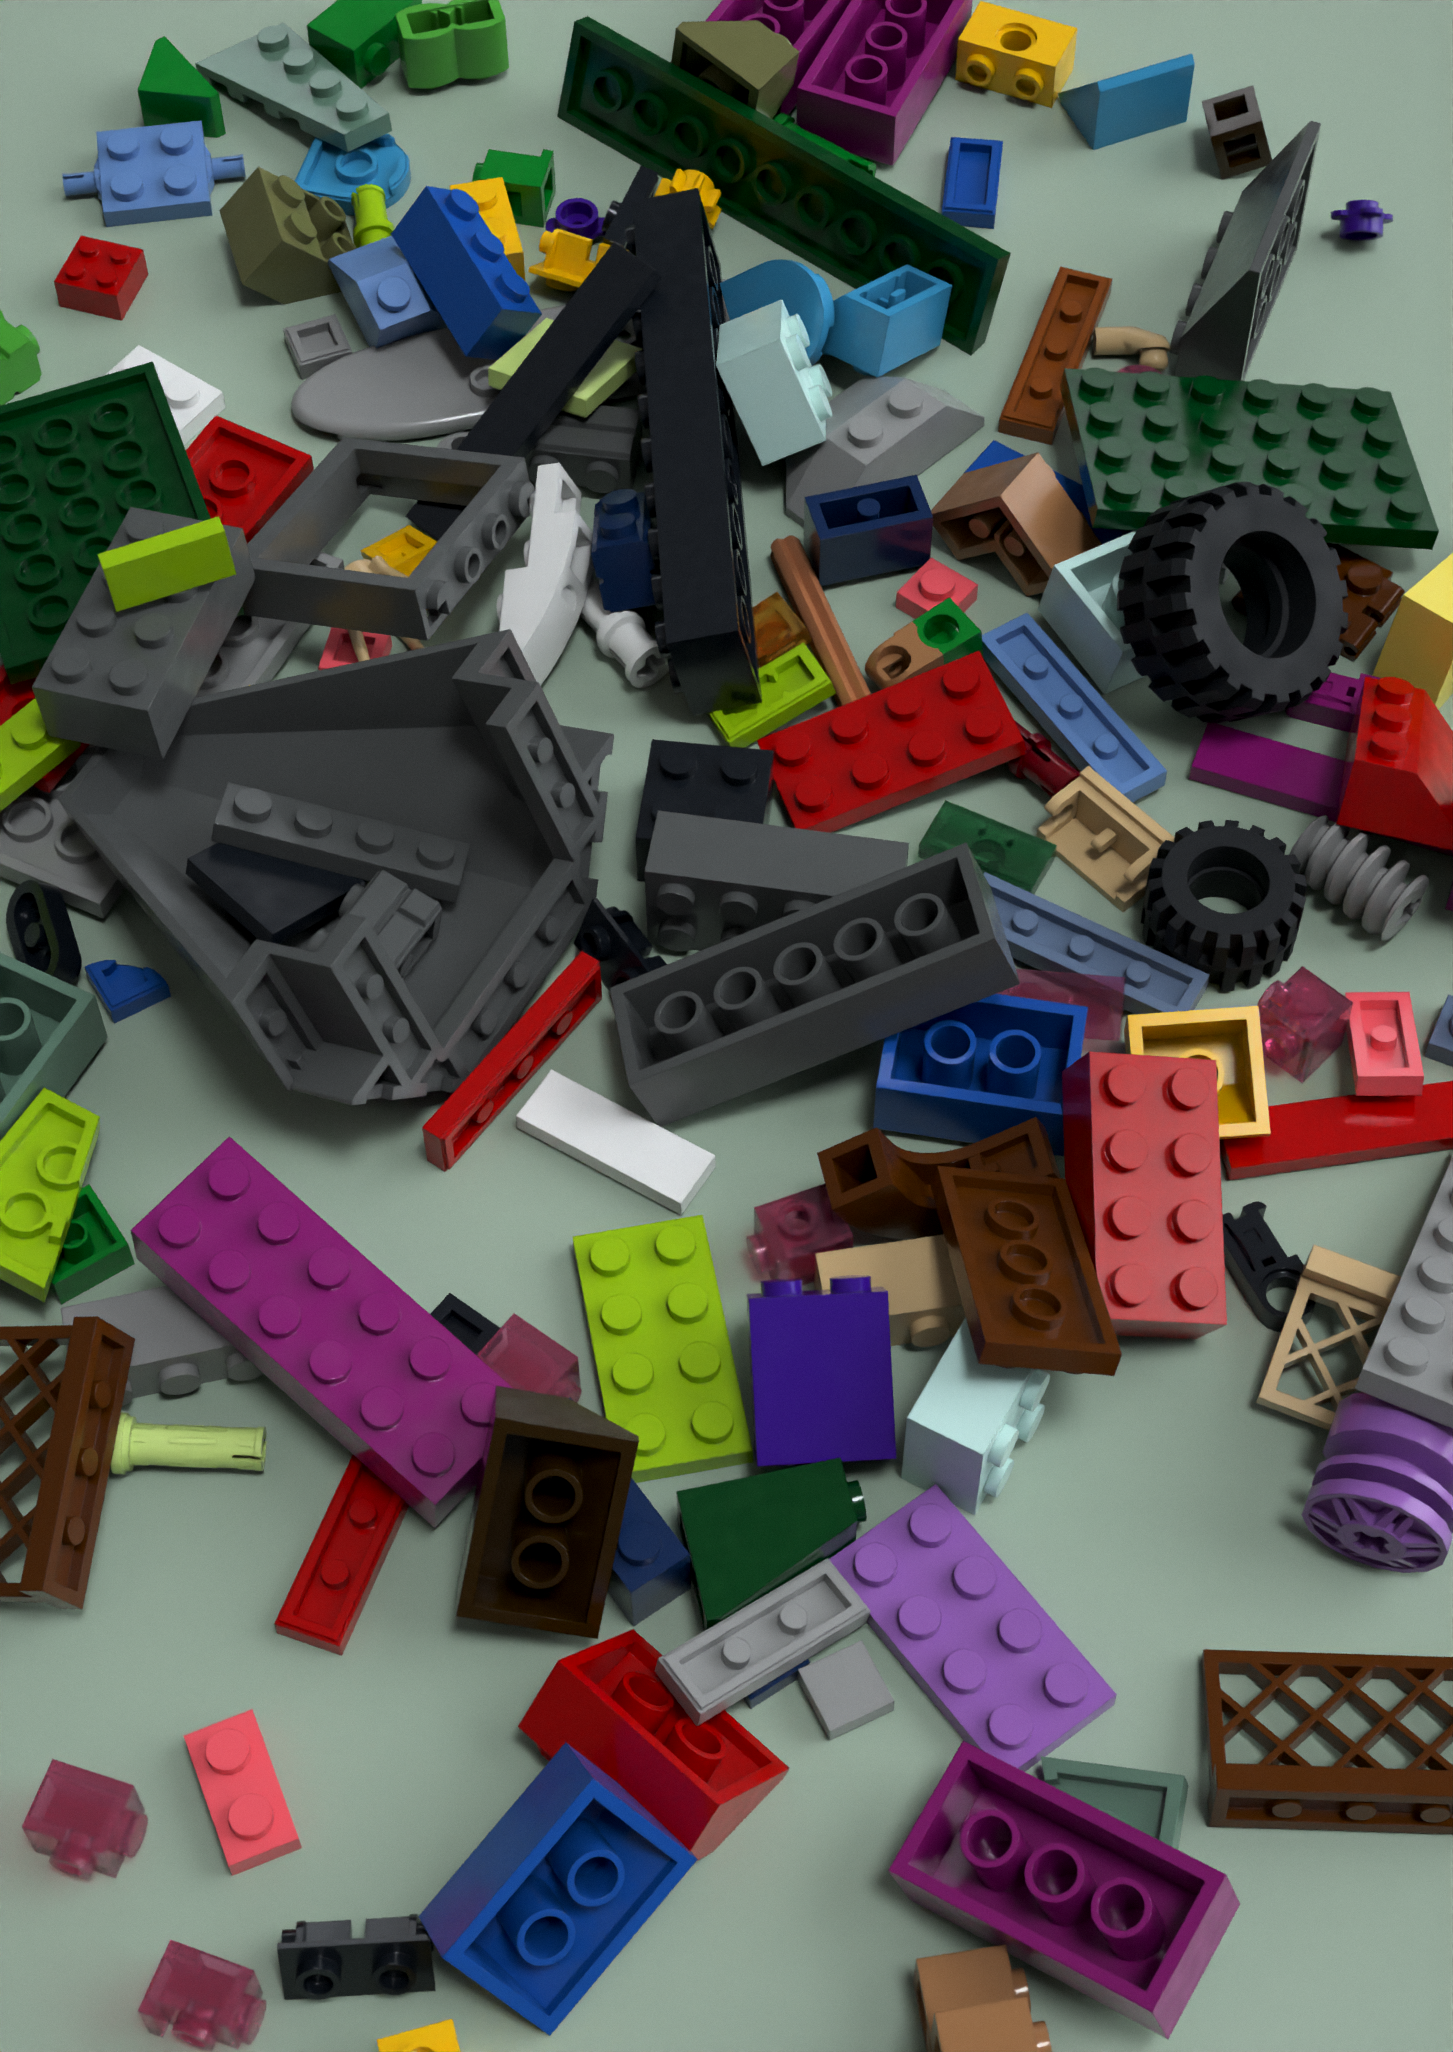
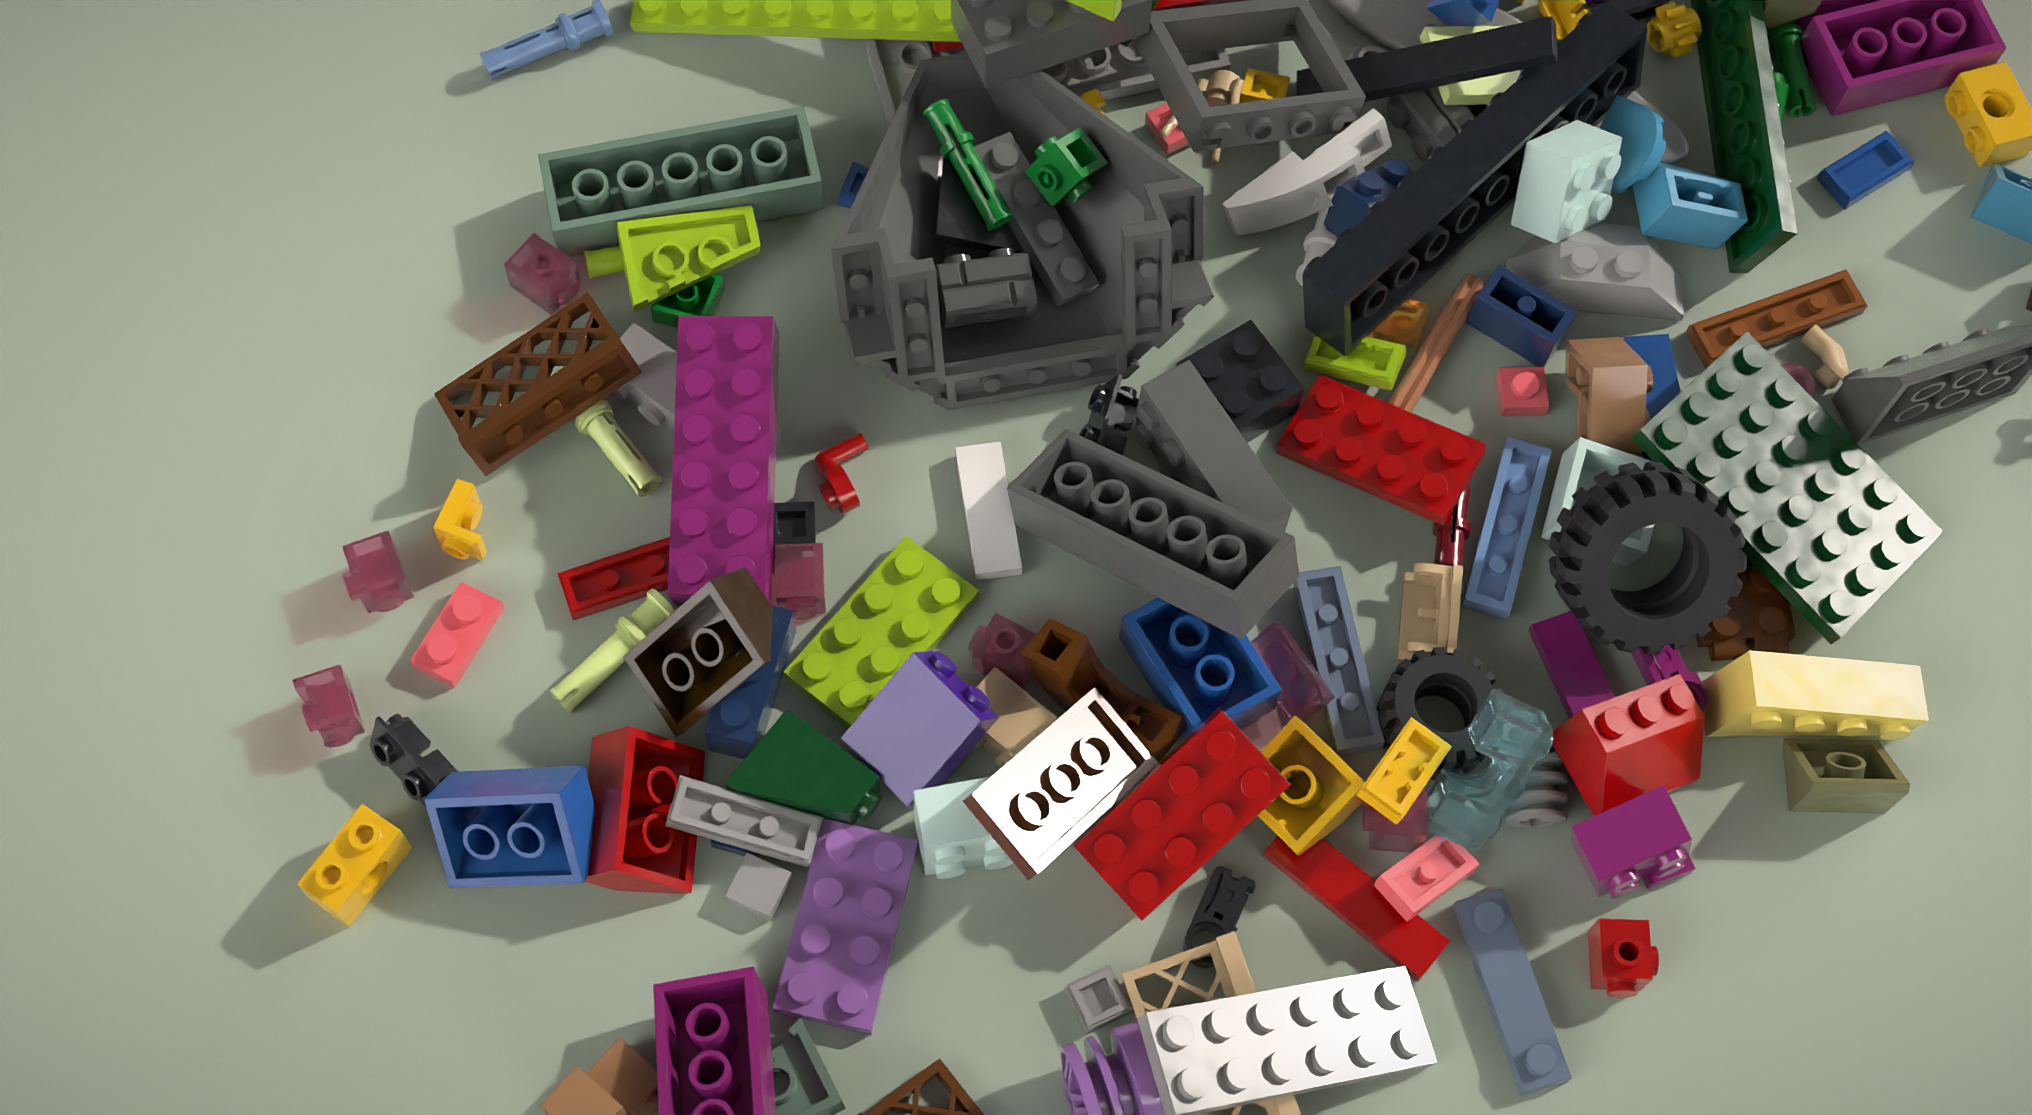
camera: 45 degrees right, 10 degrees up
(43, 931) = (849, 127): black plate -> none
(117, 1694) = (459, 514): none -> yellow bracket
(227, 842) = (943, 119): none -> green pin
(329, 758) = (1066, 167): none -> green brick
(427, 1599) = (610, 653): none -> yellowish green pin
(451, 1255) = (837, 488): none -> red plate
(512, 1062) = (987, 418): red tile -> none
(924, 645) = (1469, 413): leg -> none
(995, 846) = (1361, 556): clear green plate -> none
(1261, 1446) = (1098, 999): none -> light grey tile
(1275, 963) = (1403, 770): none -> yellow plate
(1336, 849) = (1473, 806): none -> clear light blue arch

